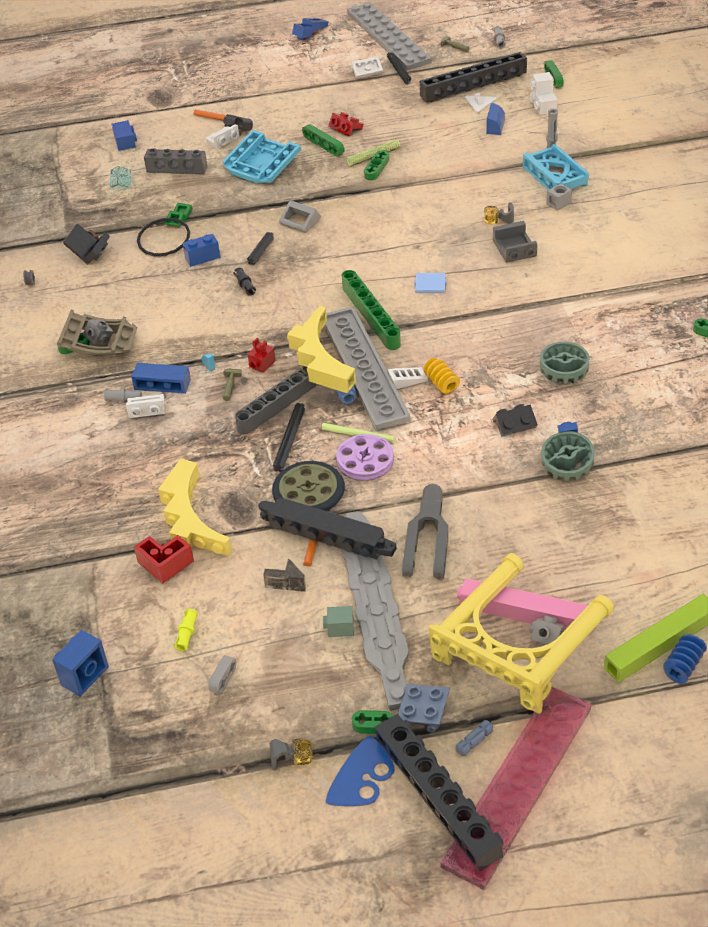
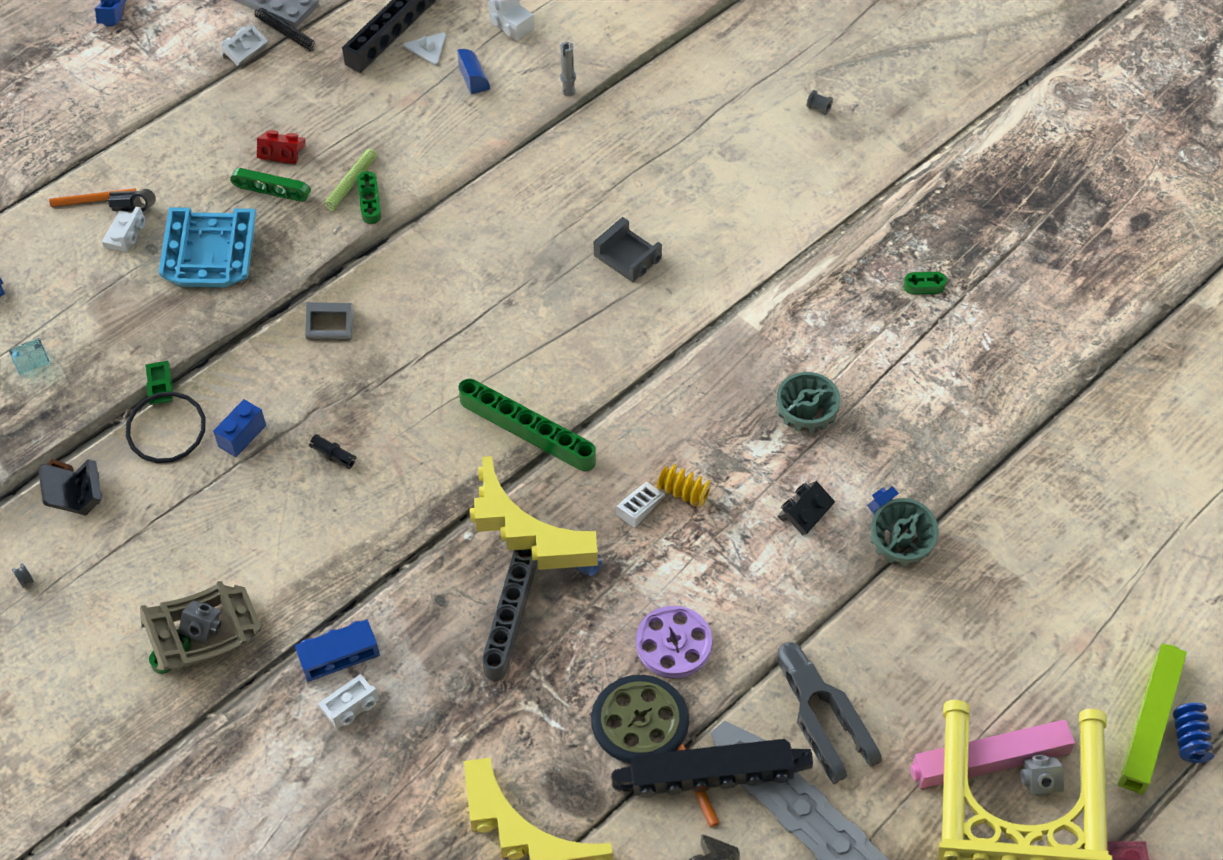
camera: 35 degrees left, 10 degrees up
(121, 395) = (304, 700): light grey pin -> none
(175, 161) = (91, 298): dark grey brick -> none
(208, 361) = (378, 595): medium azure tile -> none
(229, 385) = (420, 597): olive piece -> none
(260, 248) = (312, 390): black axle -> none
(261, 356) = (444, 558): red brick -> none
(288, 437) = (562, 658): black axle -> none
(353, 432) = (636, 611): yellowish green bar -> none
(372, 379) = (576, 508): light grey plate -> none
(430, 283) = (565, 351): light blue piece -> none
(492, 214) = (572, 218): leg -> none
(559, 196) = (632, 161): light grey brick -> none
(573, 173) = (598, 104): medium azure fence -> none

